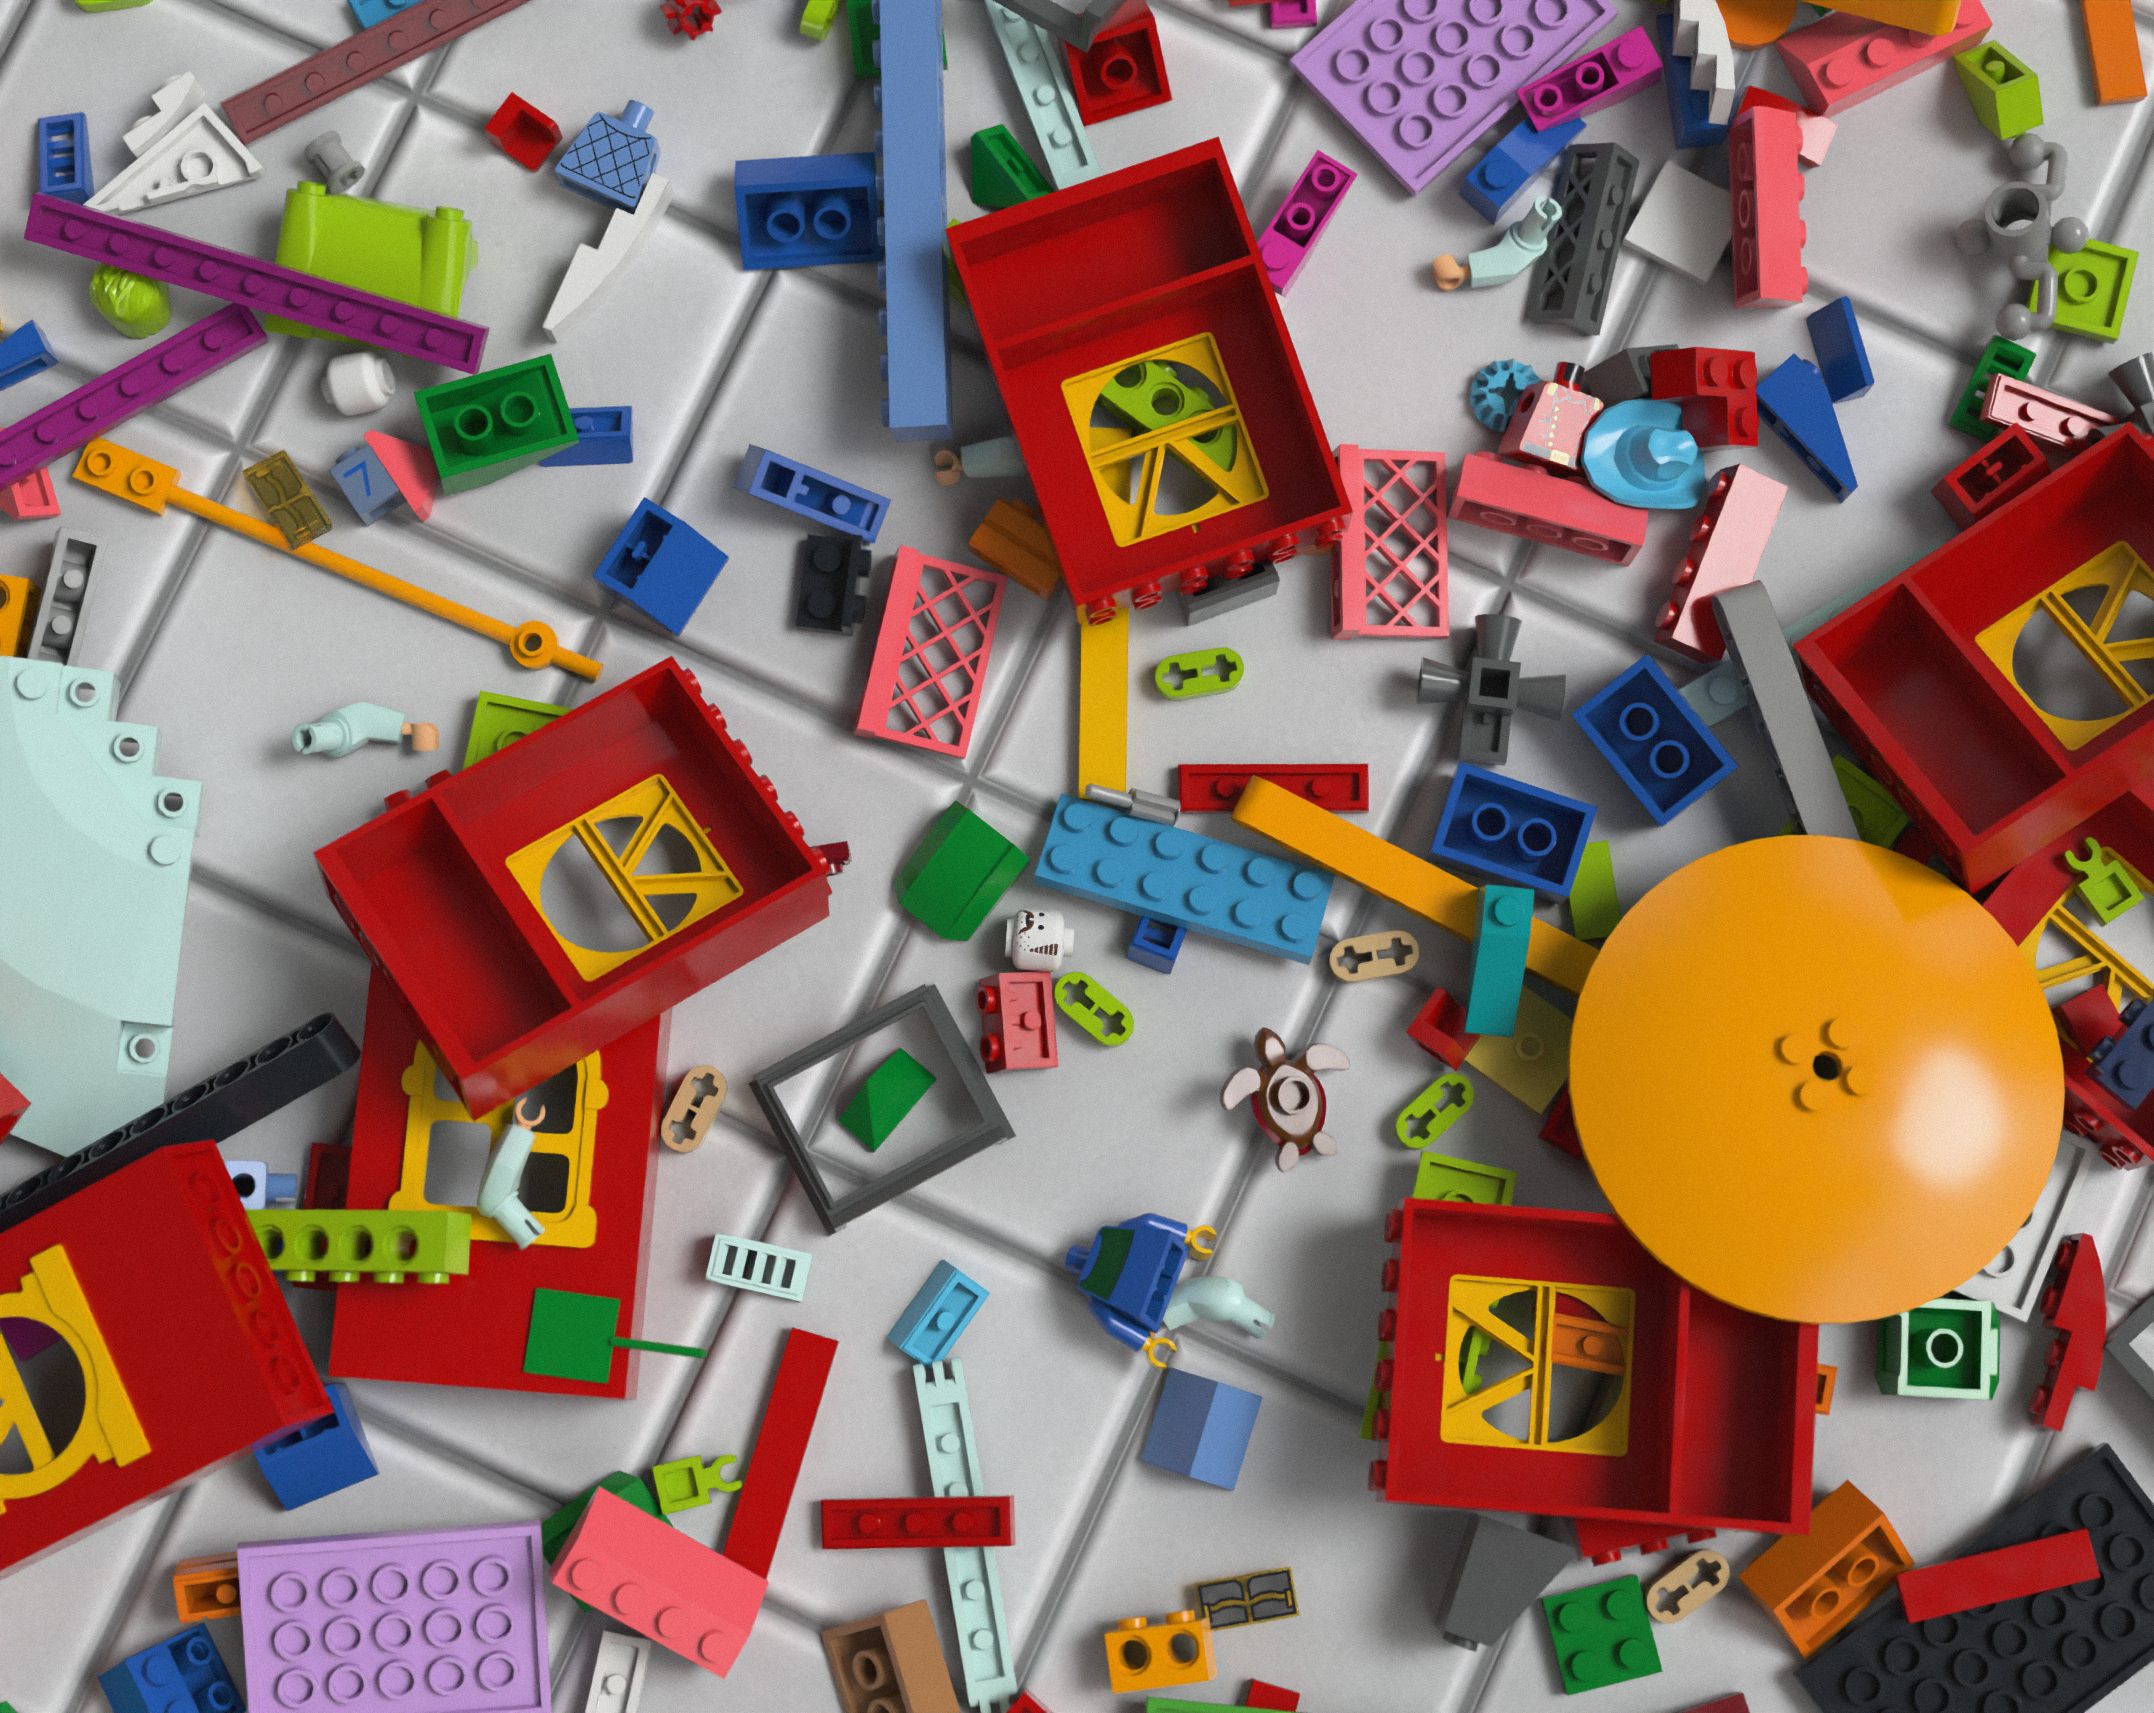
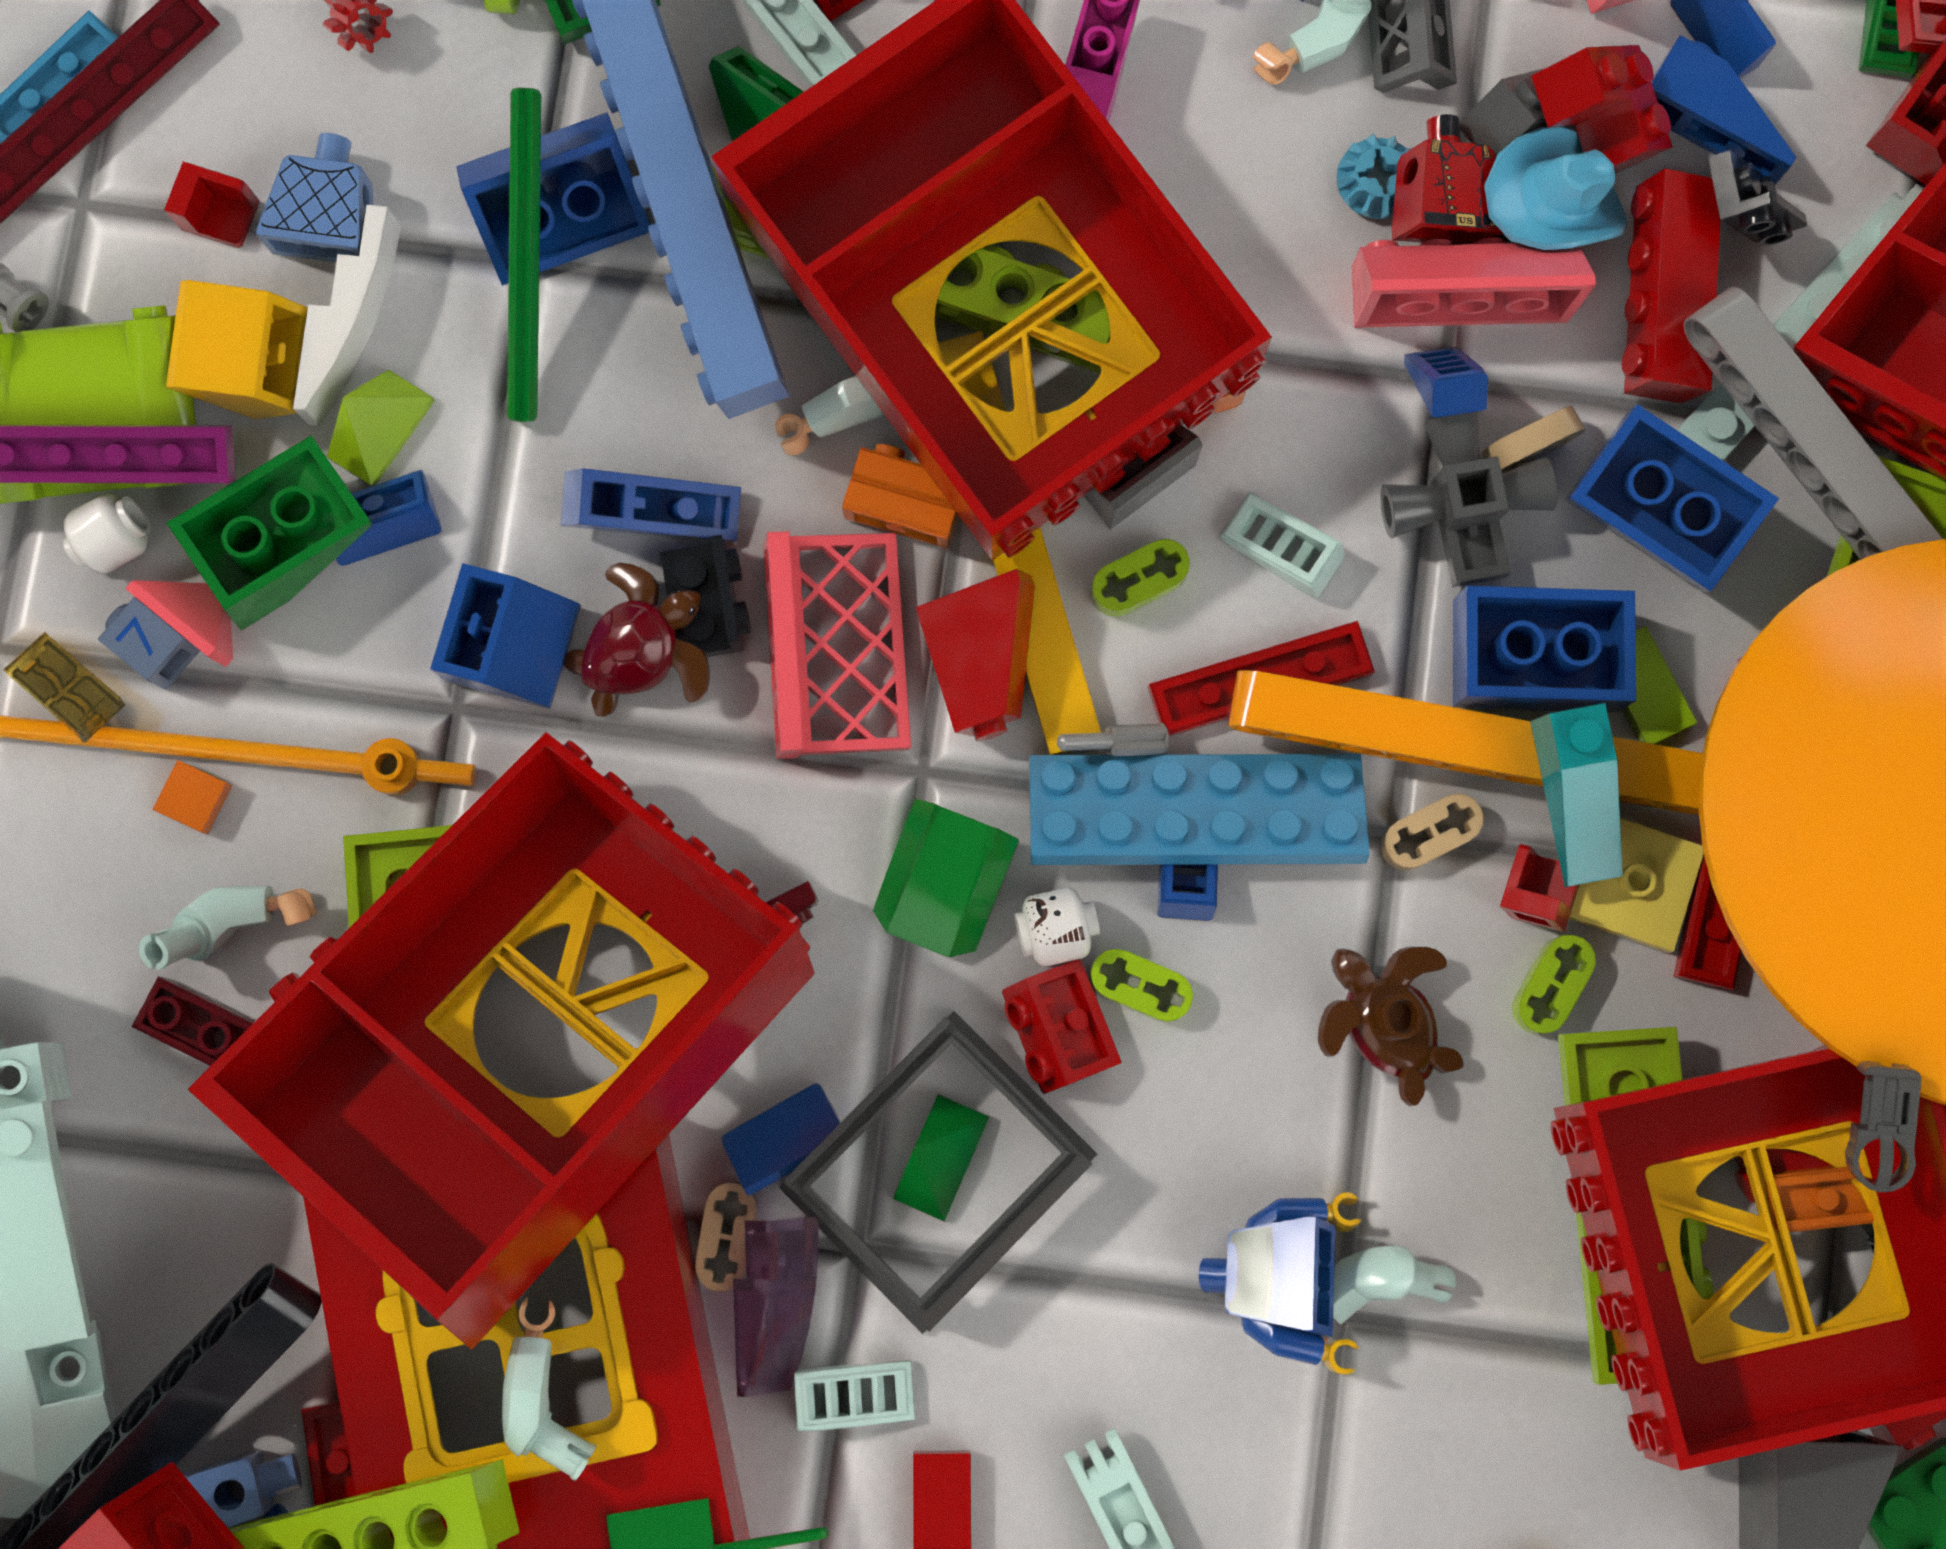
camera: 15 degrees left, 0 degrees up
(311, 805) = (188, 1021): none -> dark red tile
(365, 621) = (192, 797): none -> orange tile
(512, 263) = (237, 348): none -> yellow slope
(605, 358) = (376, 425): none -> lime slope
(717, 1171) = (774, 1302): none -> clear purple slope
(761, 1041) = (780, 1138): none -> blue slope
(767, 603) = (638, 643): none -> animal
(769, 256) = (524, 254): none -> green axle
(938, 1314) = (1072, 1386): medium azure slope -> none
(1047, 695) = (981, 651): none -> red slope
(1201, 1428) = (1409, 1426): medium blue slope -> none
(1349, 555) = (1264, 403): coral fence -> none
(1350, 714) = (1292, 572): none -> light aqua slope
(1503, 587) = (1448, 381): none -> blue slope
(1563, 658) = (1536, 439): none -> tan beam
(1638, 1277) = (1886, 1114): none -> dark grey piece
(1806, 510) = (1750, 201): none -> black bracket

